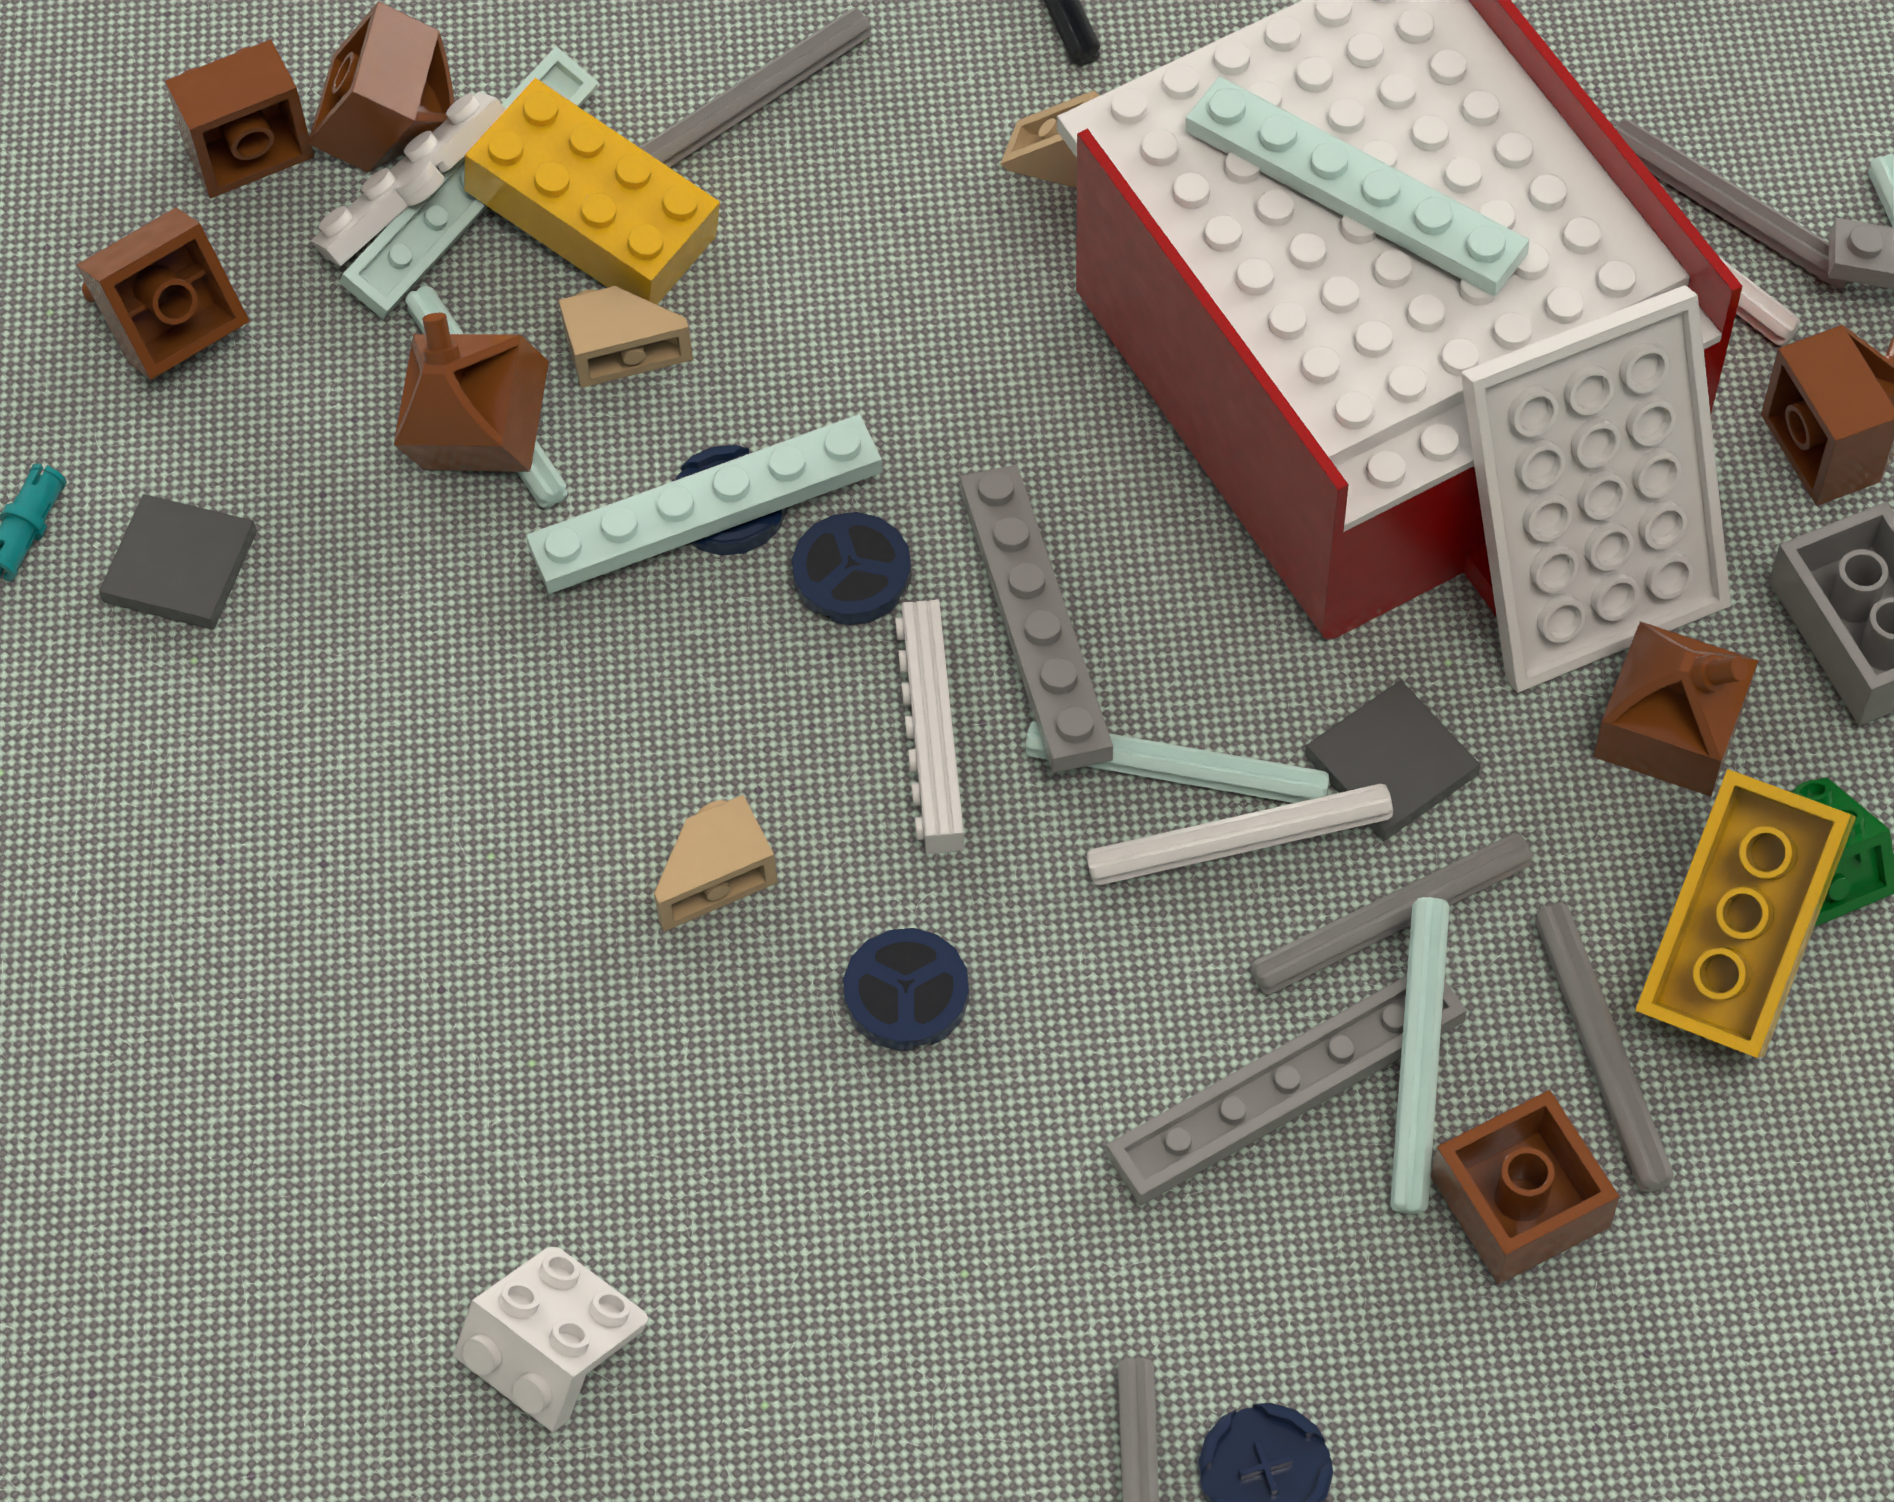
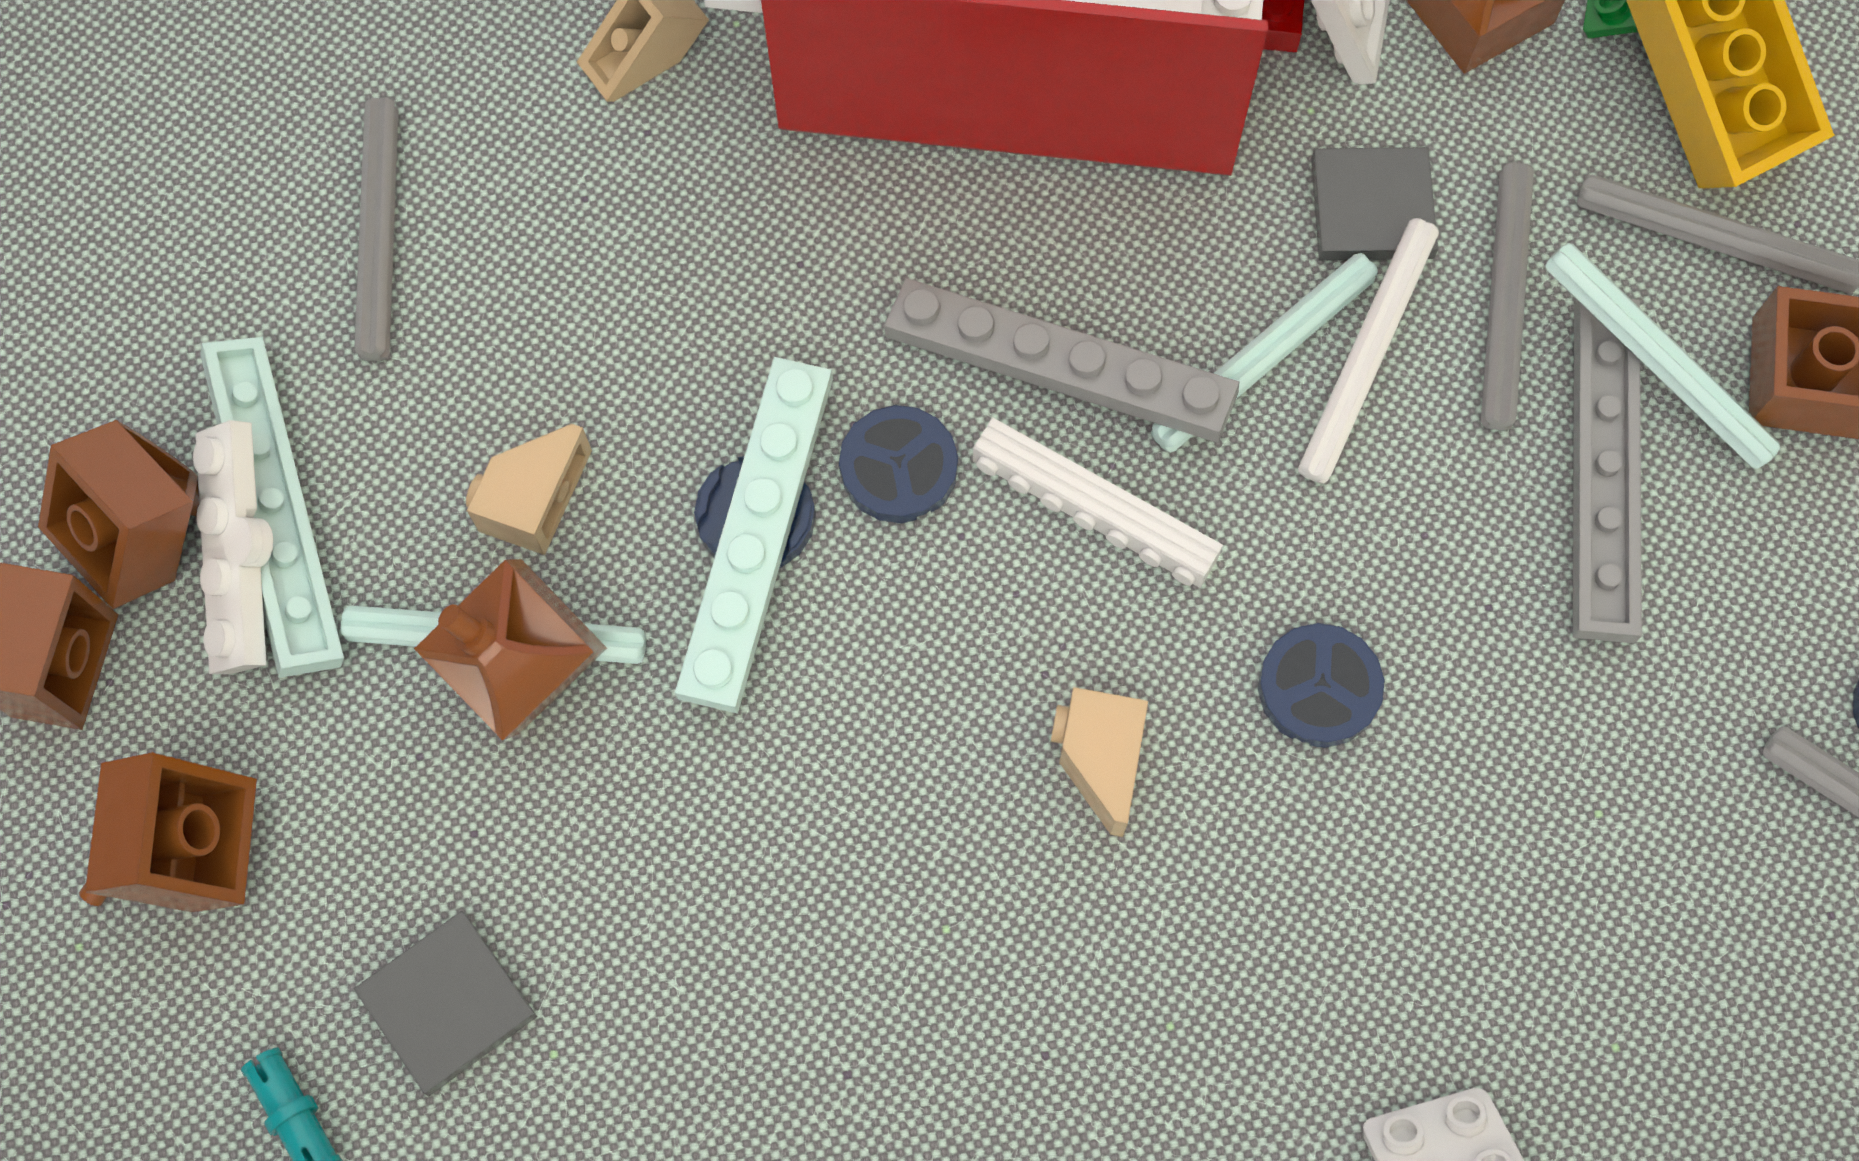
camera: 55 degrees left, 10 degrees up
(590, 194) = (380, 415): yellow brick -> none

